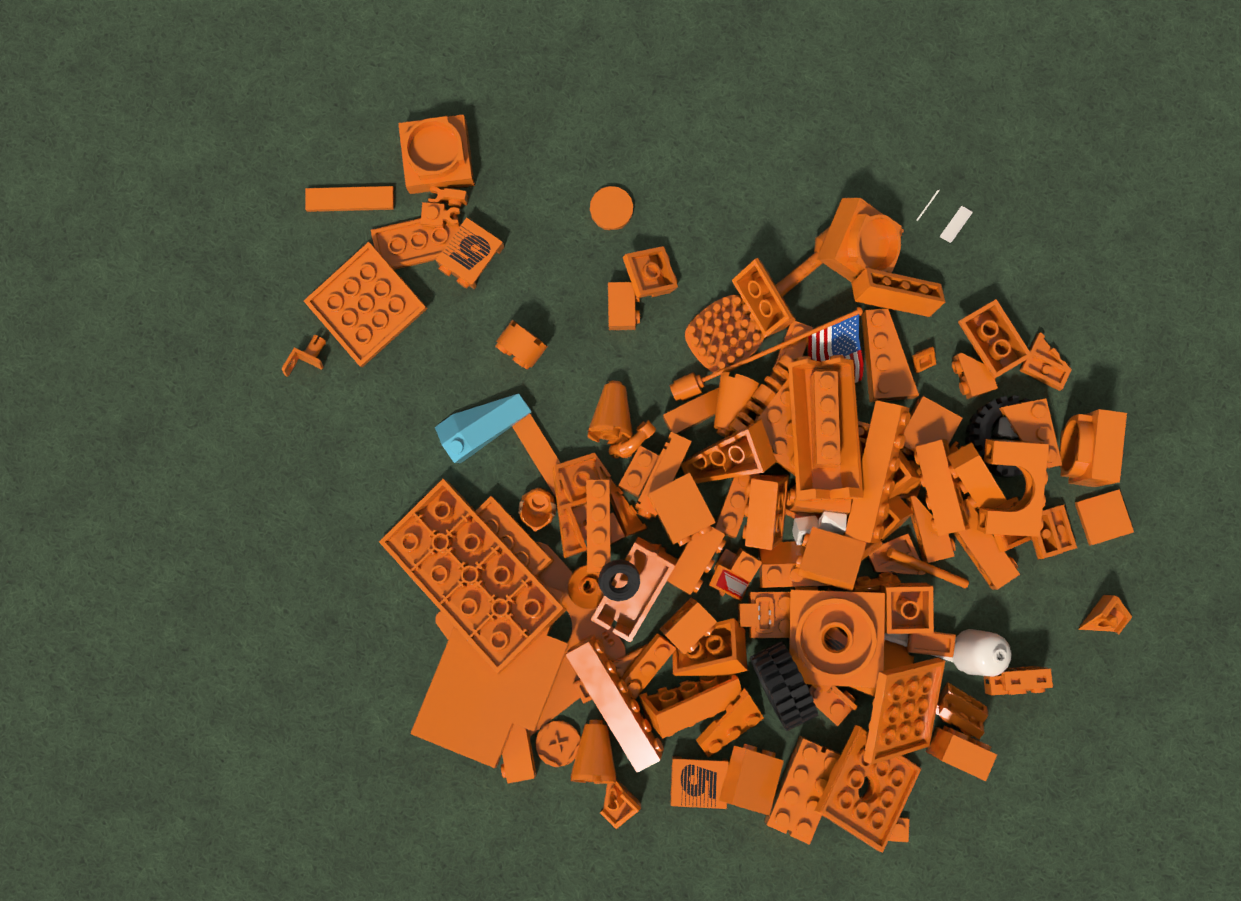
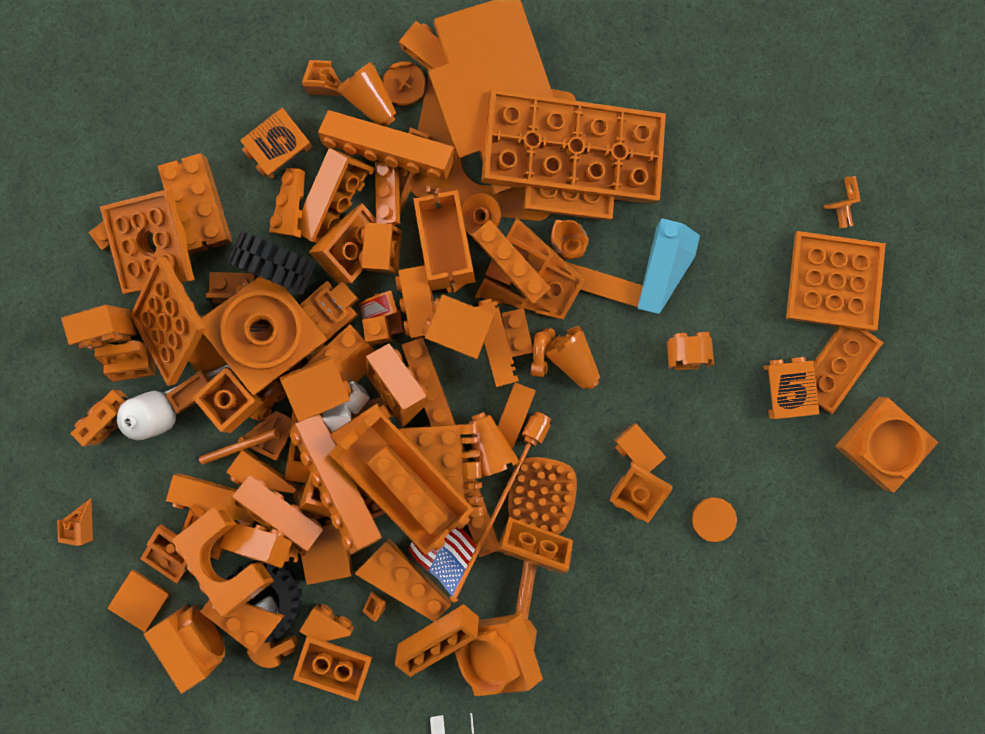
camera: 135 degrees right, 5 degrees up
(349, 198) = (921, 352): orange tile -> none
(435, 215) = (843, 396): orange plate -> none
(453, 197) = (843, 422): orange plate -> none
(624, 592) = (469, 242): black tyre -> none
(734, 456) = (454, 402): orange wedge -> none
(751, 779) = (239, 176): orange brick -> none
(1033, 390) = (269, 653): none -> orange brick
(1046, 364) = (278, 683): orange wing -> none

